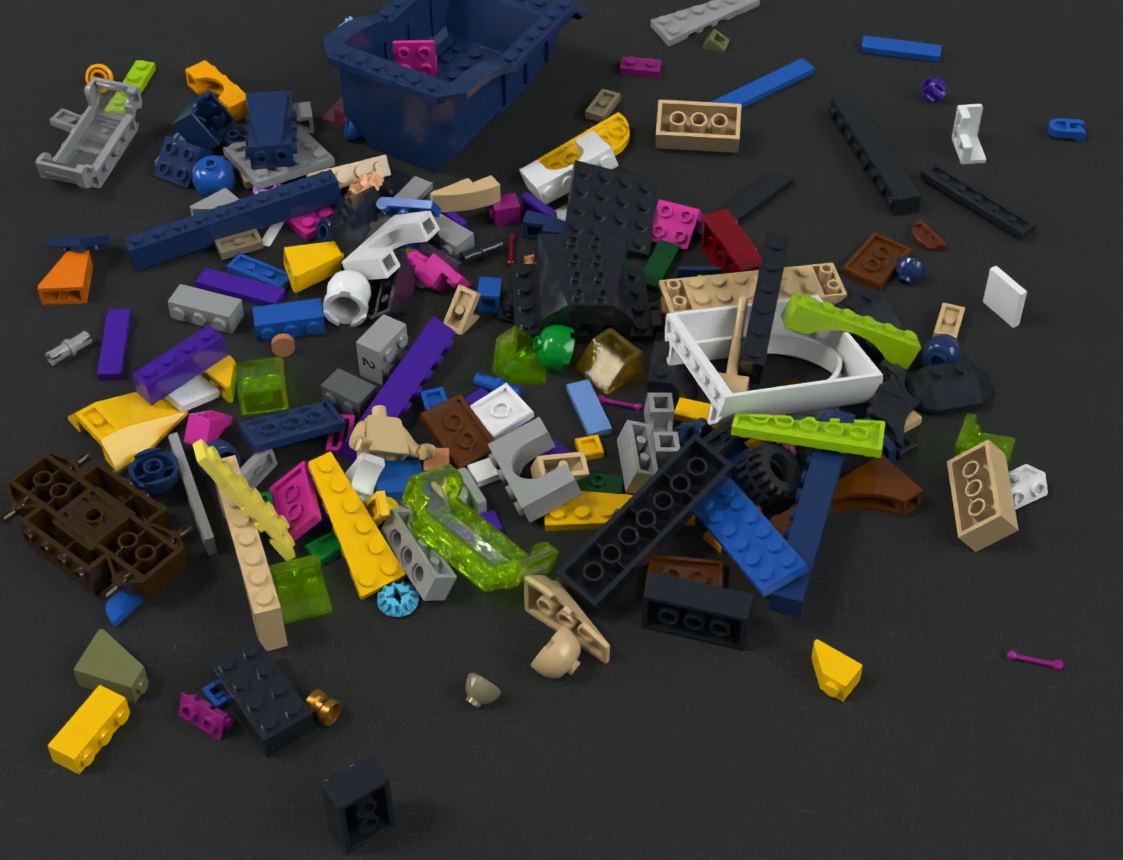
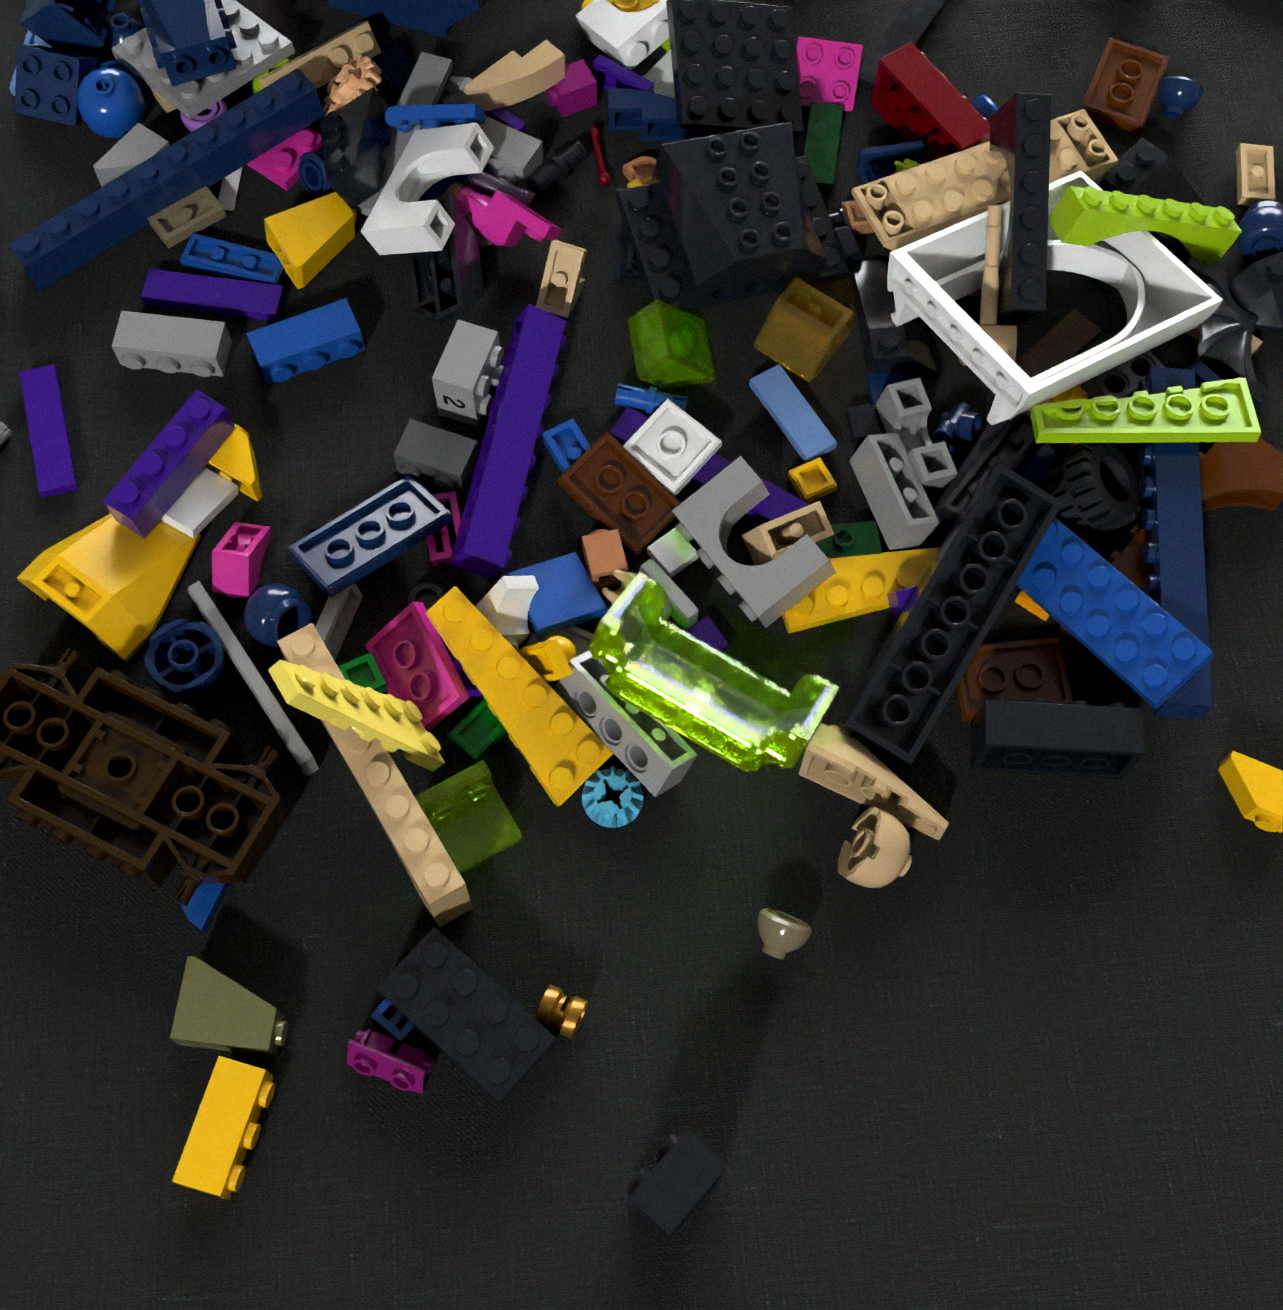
camera: 15 degrees left, 20 degrees up
(261, 385) = (298, 461): clear neon green slope -> none
(283, 345) = (310, 387): nougat tile -> none
(347, 298) = (386, 289): white tile -> none
(386, 438) = (523, 536): tan torso -> none
(491, 294) = (594, 234): blue brick -> none
(554, 347) = (723, 323): green cylinder -> none
(638, 406) = (862, 396): magenta hinge -> none
(691, 410) = (948, 389): yellow tile -> none
(926, 238) = (1182, 34): copper tile -> none

